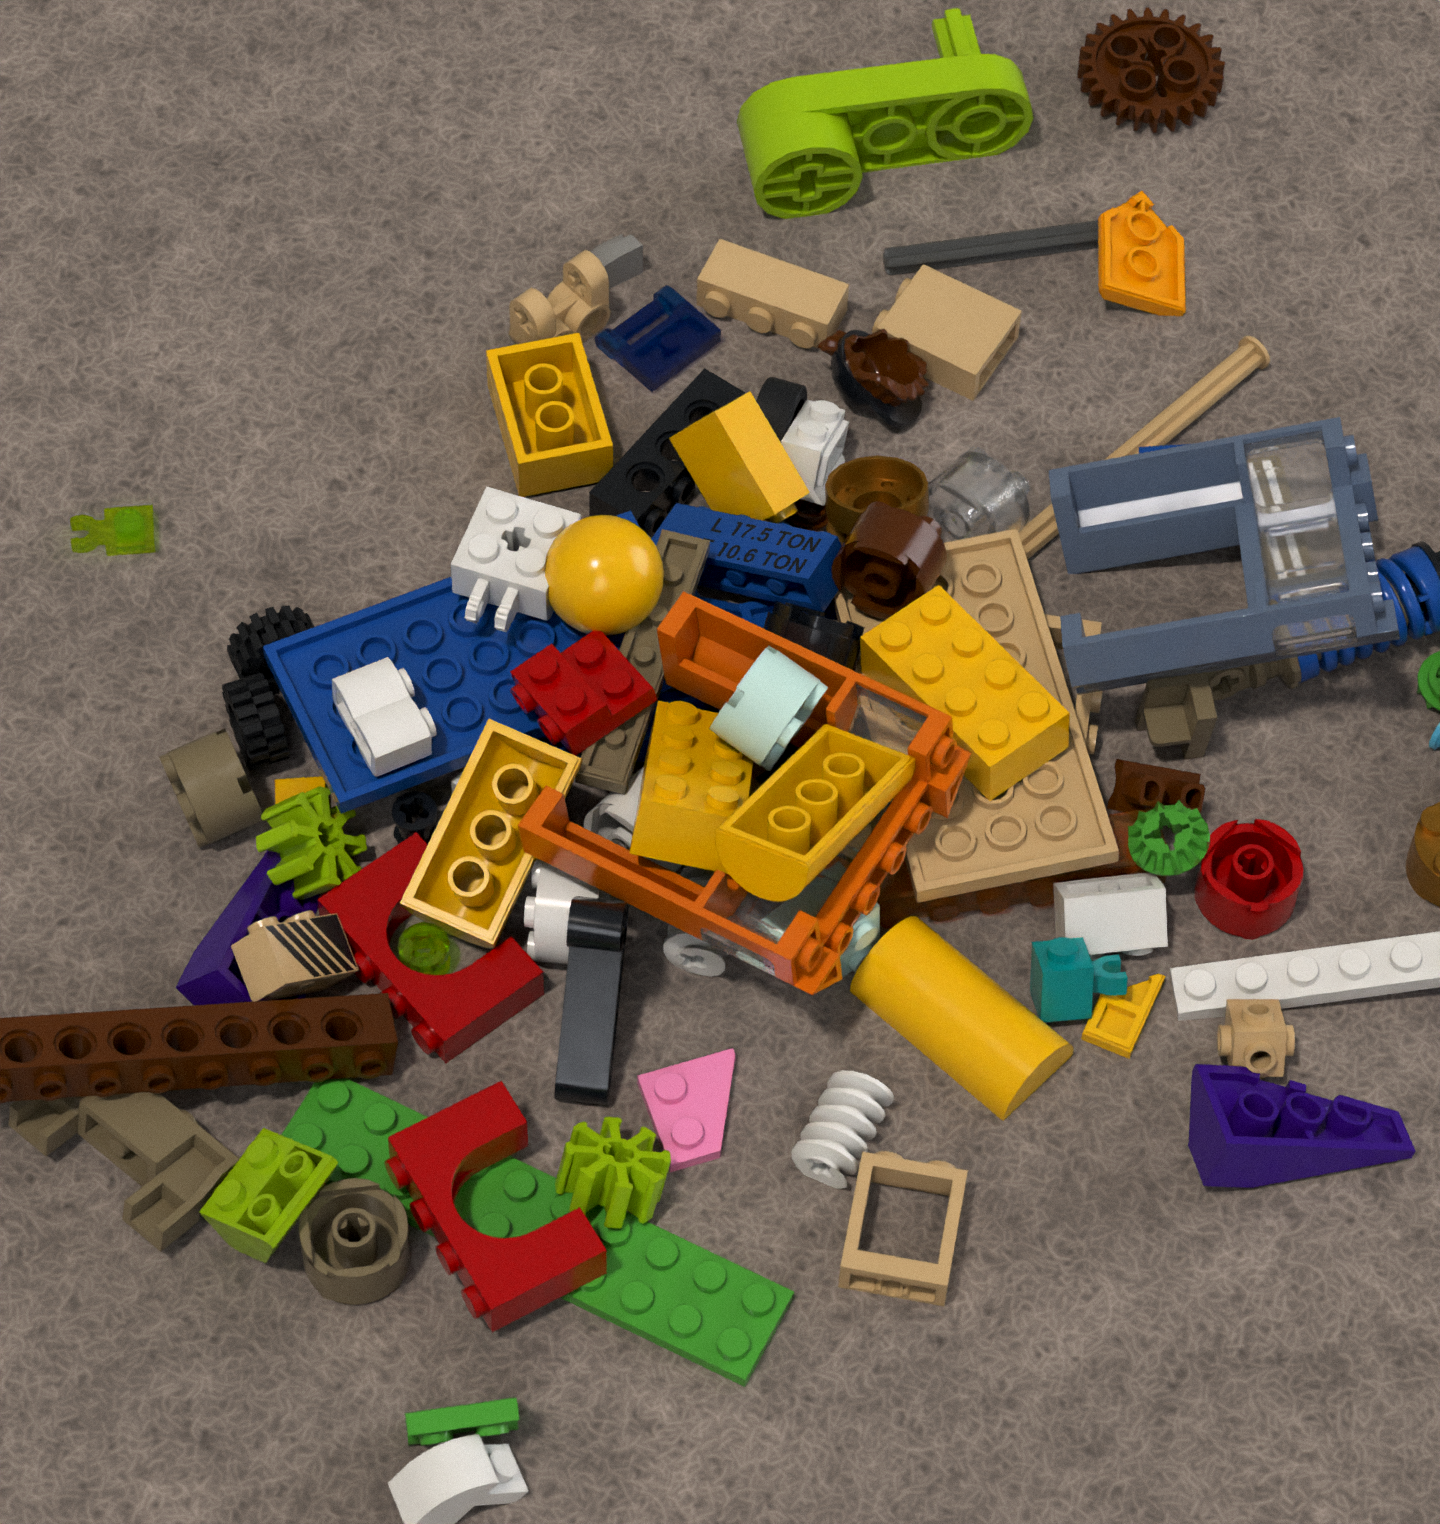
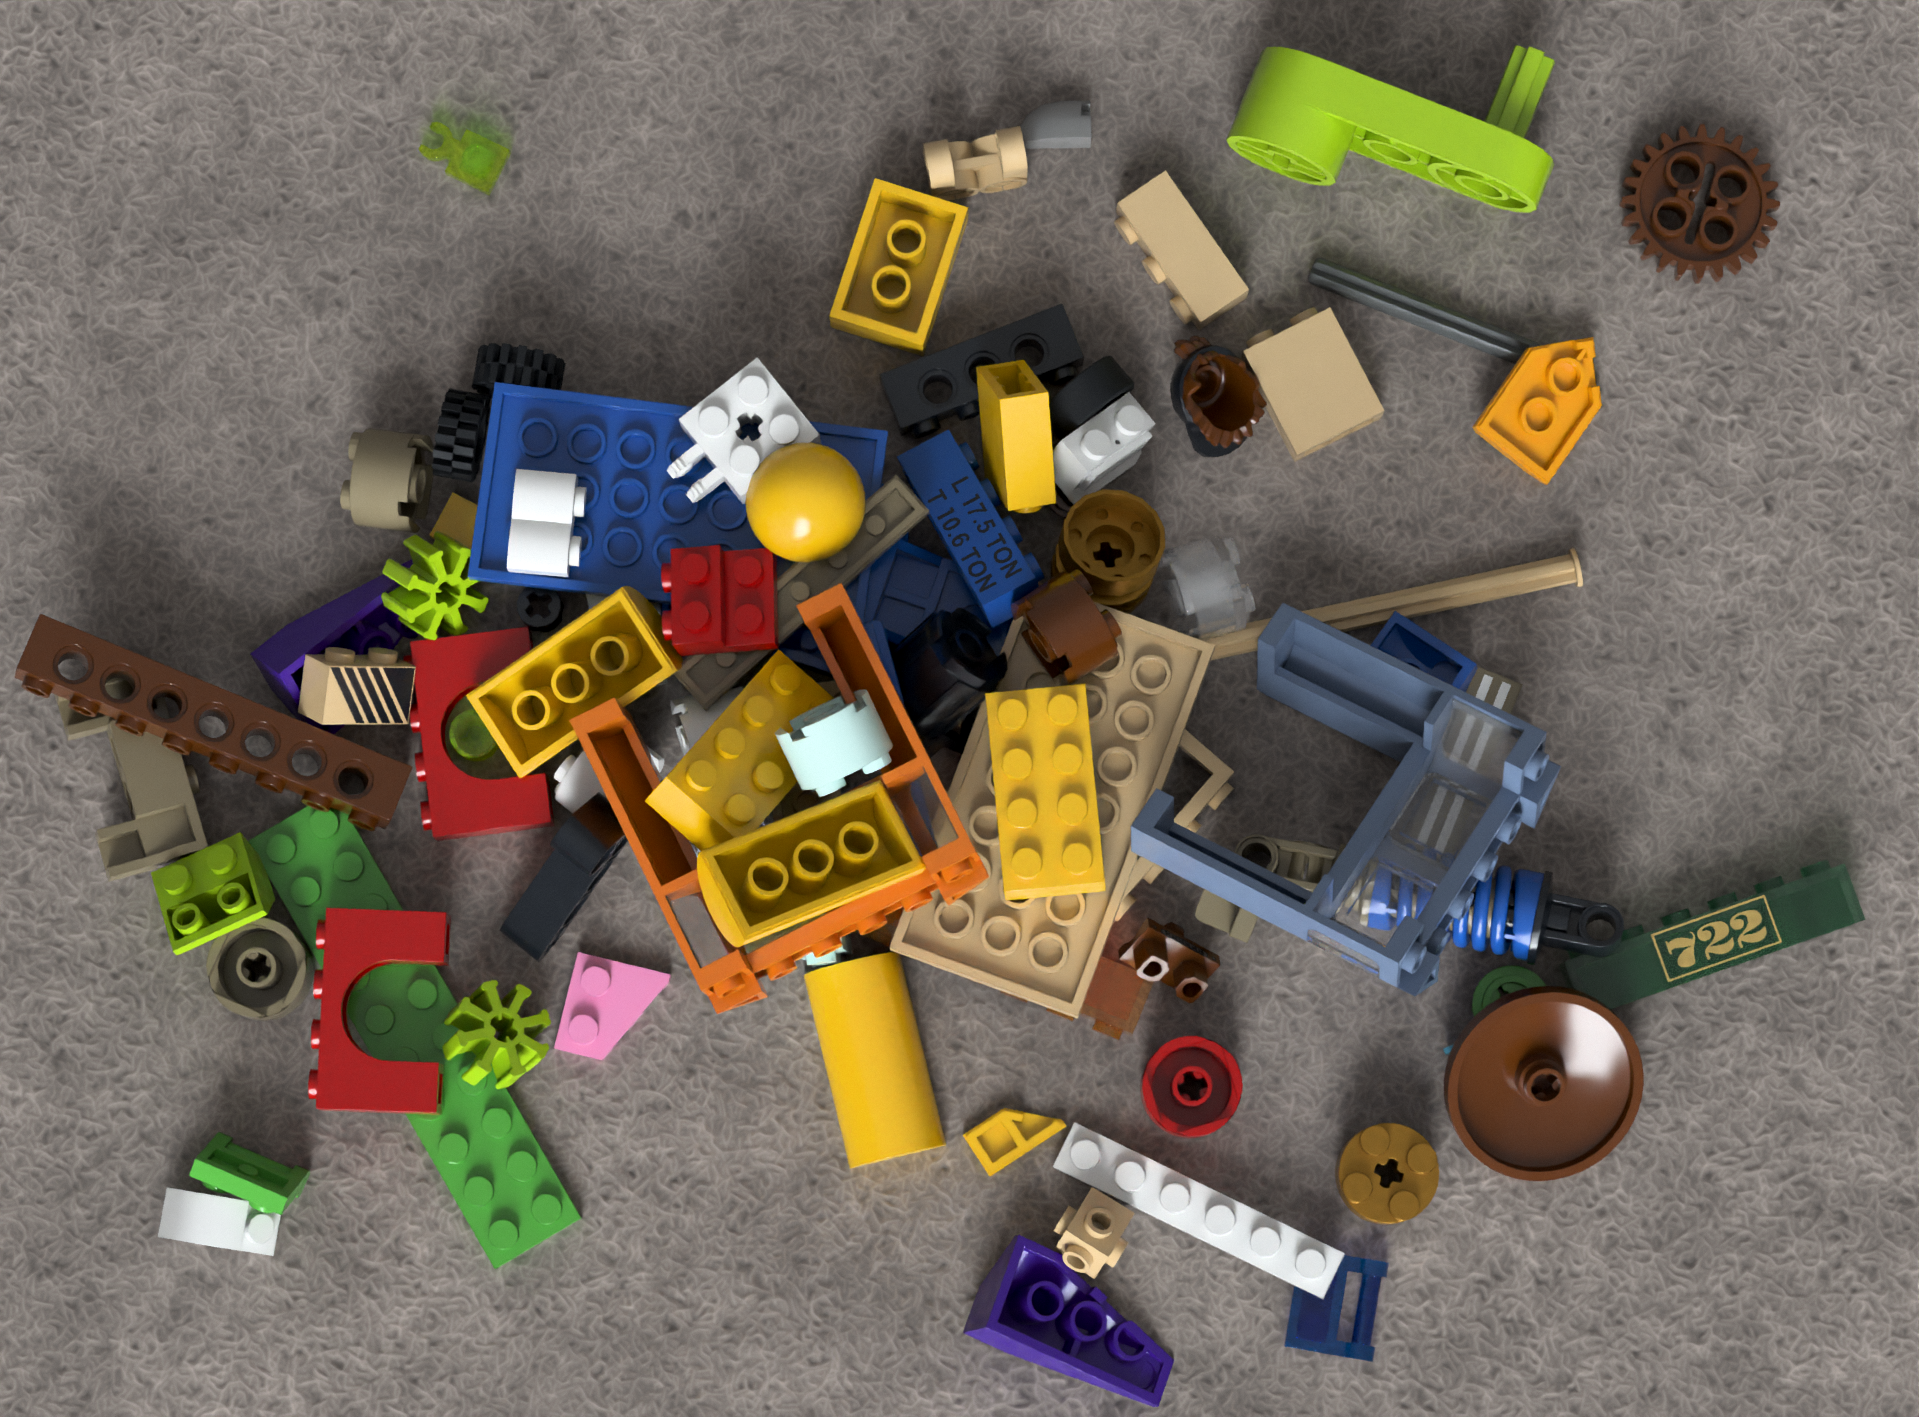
camera: 35 degrees right, 25 degrees up
(665, 347) = (1057, 247): clear blue plate -> none
(840, 1127) = (708, 1102): white piece -> none
(892, 1274) = (664, 1256): tan window -> none
(1067, 978) = (976, 1086): teal brick -> none
(1113, 913) = (1052, 1050): white brick -> none
(1150, 850) = (1148, 1040): bright green gear -> none

